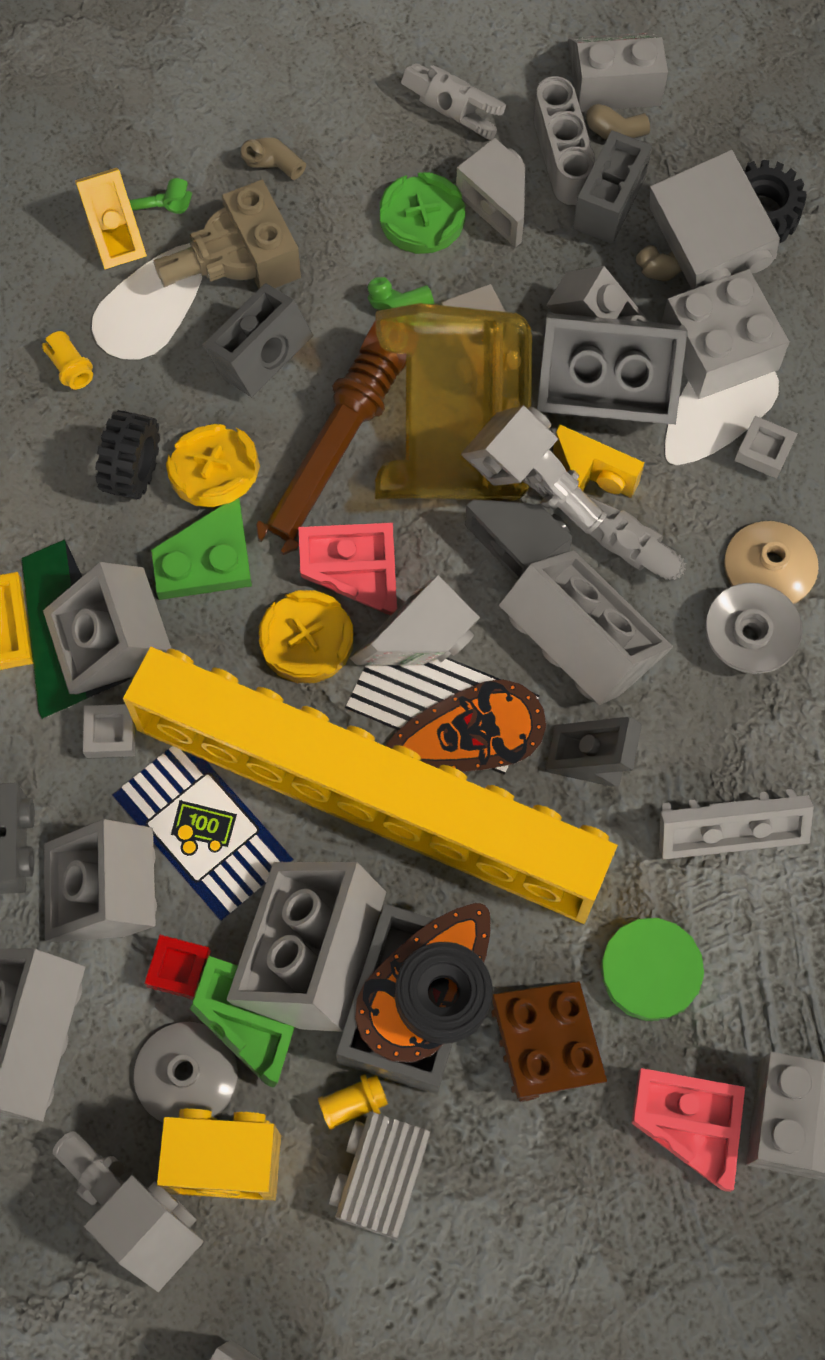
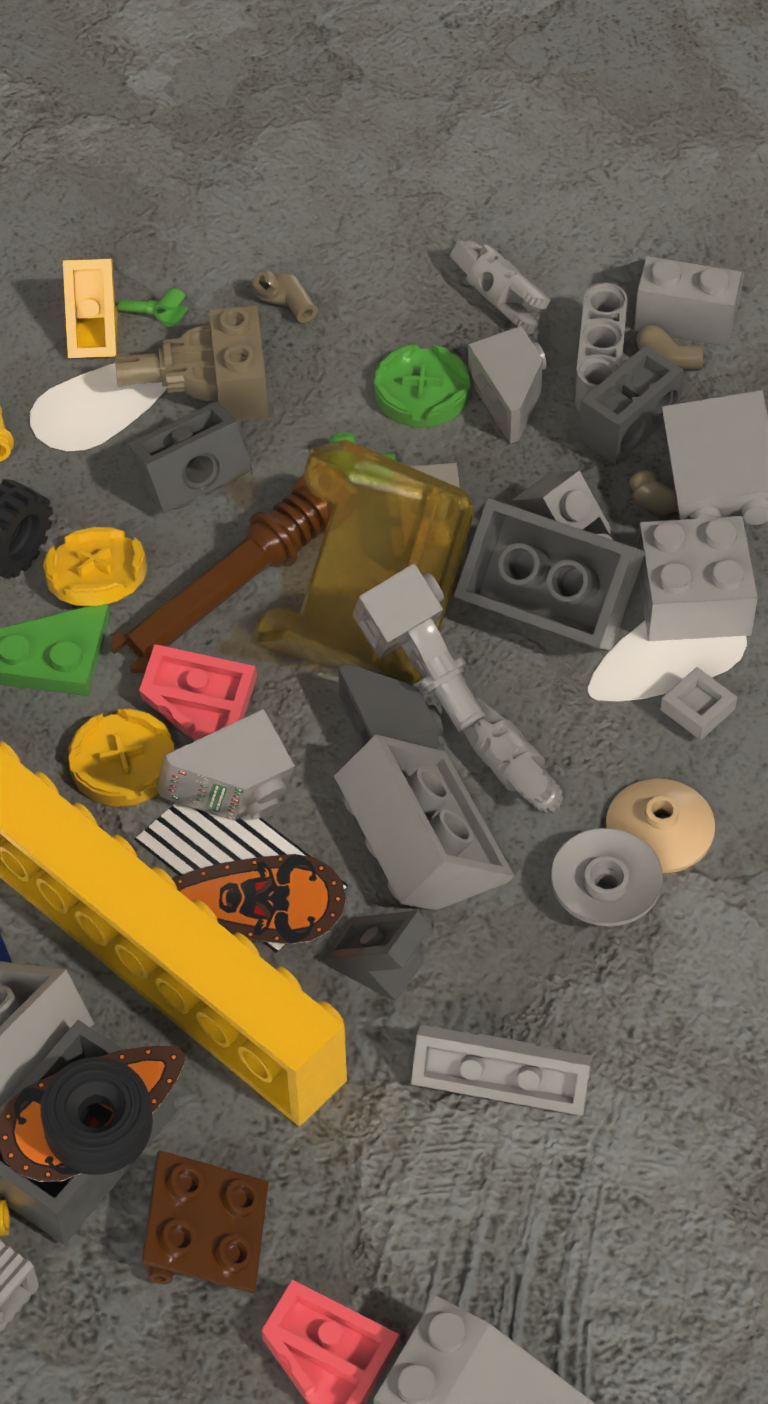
camera: 20 degrees right, 15 degrees down
(597, 462) = (498, 666): yellow slope -> none
(652, 969) = (351, 1190): bright green tile -> none

